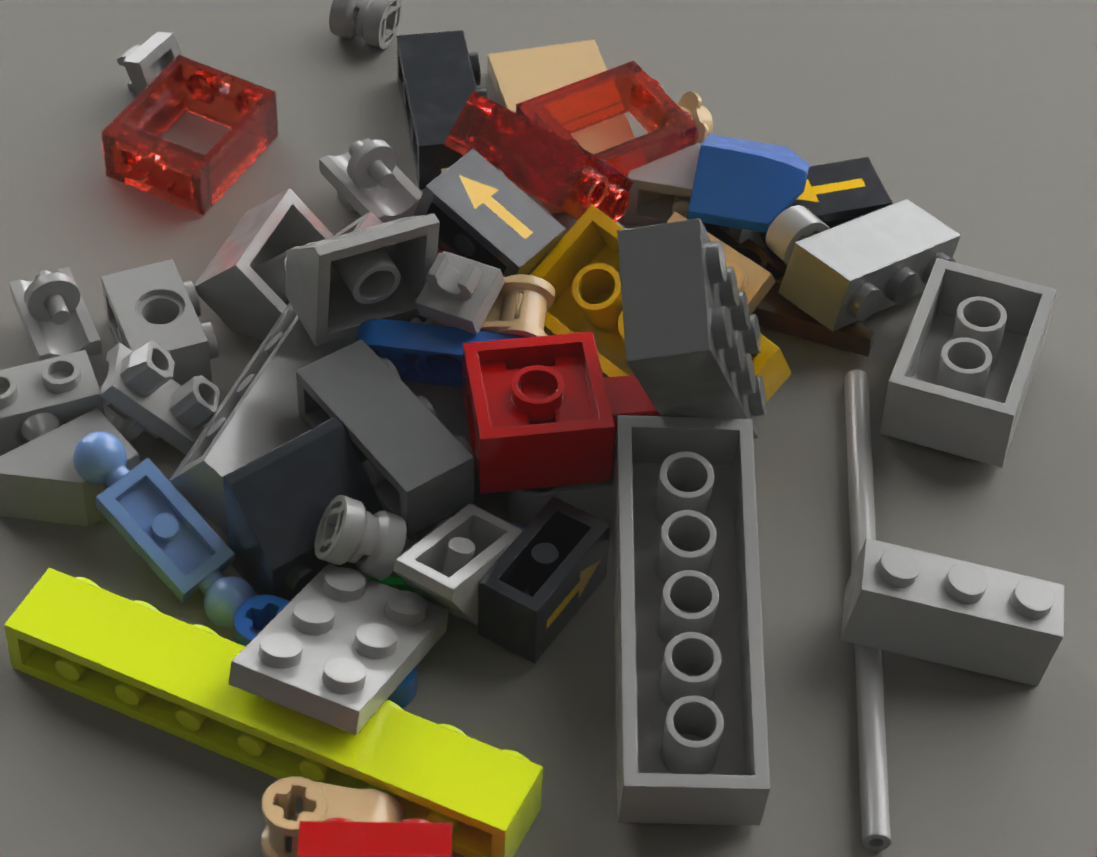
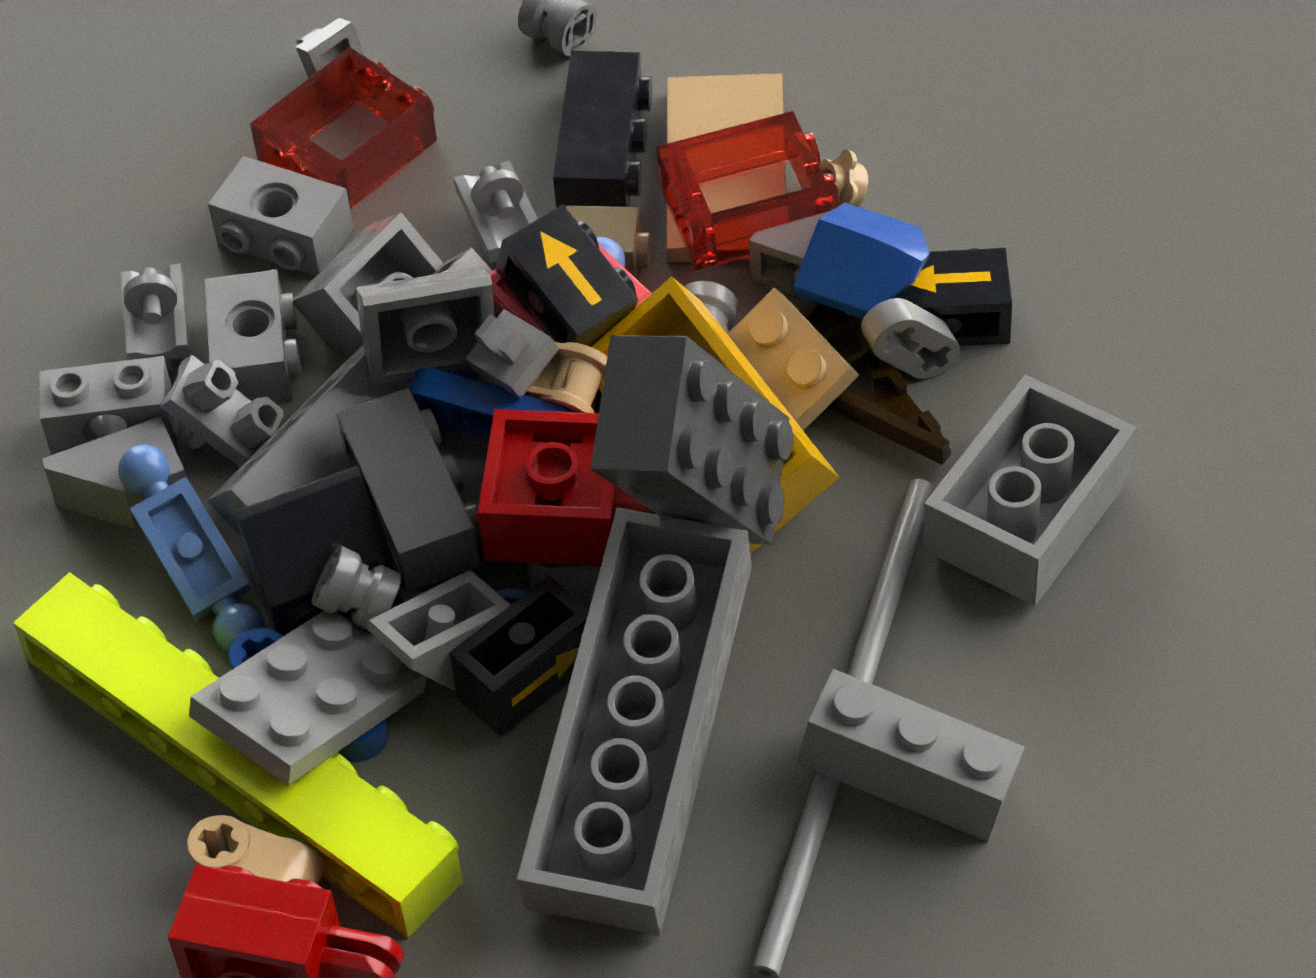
camera: 20 degrees right, 5 degrees up
(151, 215) = (281, 216): none -> light grey brick
(539, 160) = (643, 220): clear red window -> none
(866, 264) = (962, 366): dark grey brick -> none

